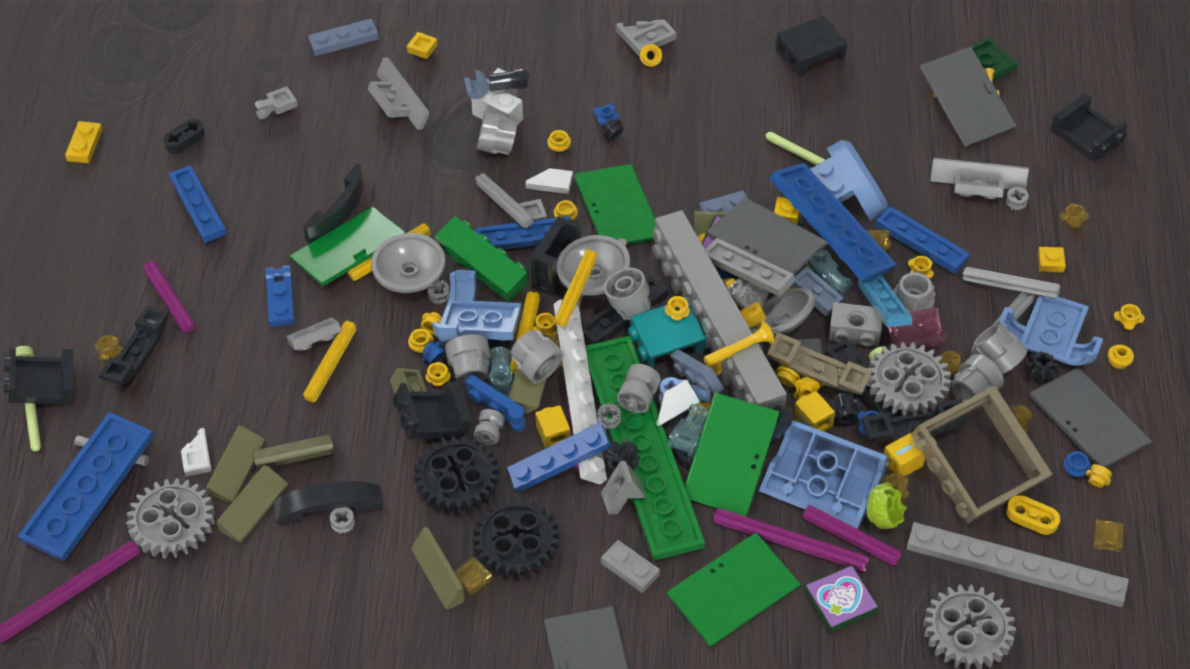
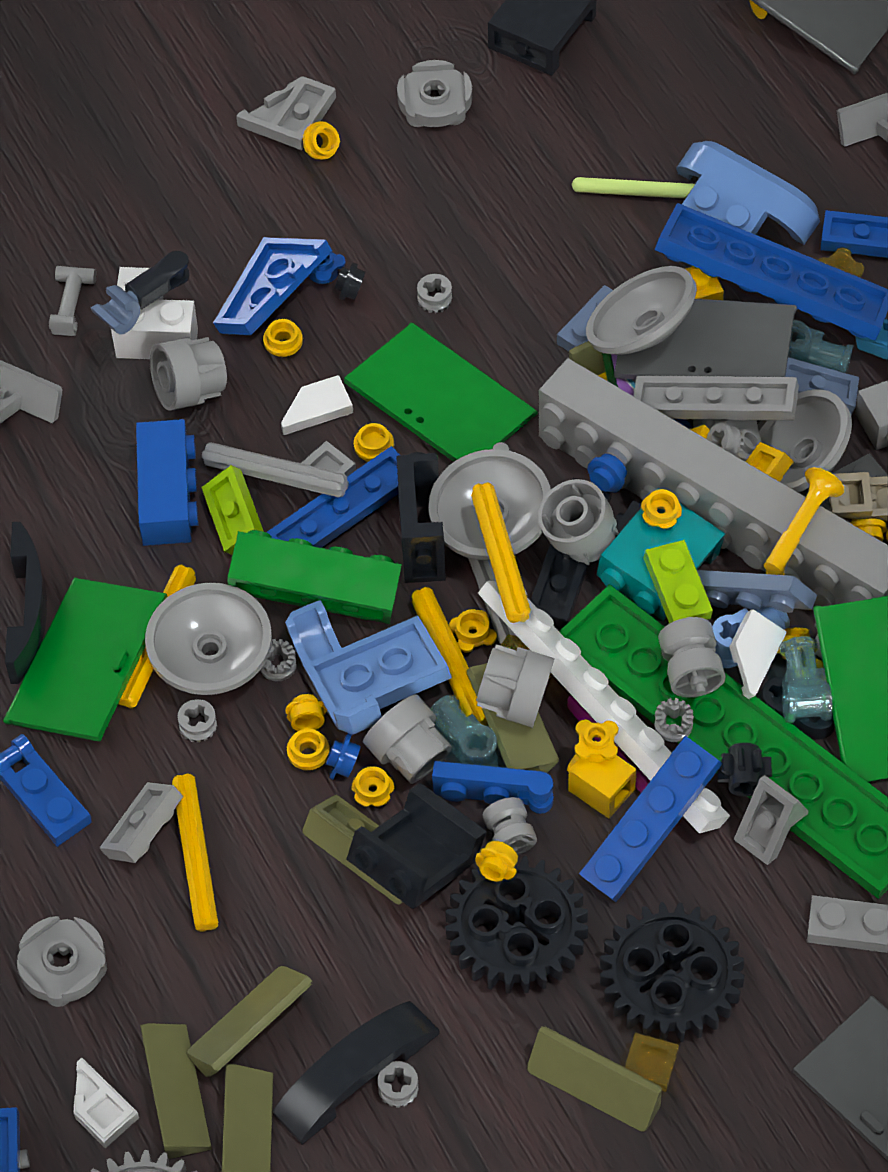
camera: 30 degrees left, 5 degrees up
(230, 390) = (64, 983): none -> light grey plate
(376, 306) = (201, 730): none -> light grey bush
(446, 181) = (165, 482): none -> blue brick
(458, 85) = (64, 322): none -> light grey piece
(464, 436) = (497, 861): none -> yellow plate
(471, 206) = (231, 506): none -> lime plate
(560, 409) = (596, 751): none -> yellow plate
(569, 110) = (268, 280): none -> blue wing
(652, 159) = (440, 300): none -> light grey bush
(660, 348) = (677, 582): none -> lime plate
(666, 279) = (607, 473): none -> blue plate
(727, 68) = (434, 111): none -> light grey plate
(737, 206) = (642, 311): none -> light grey dish

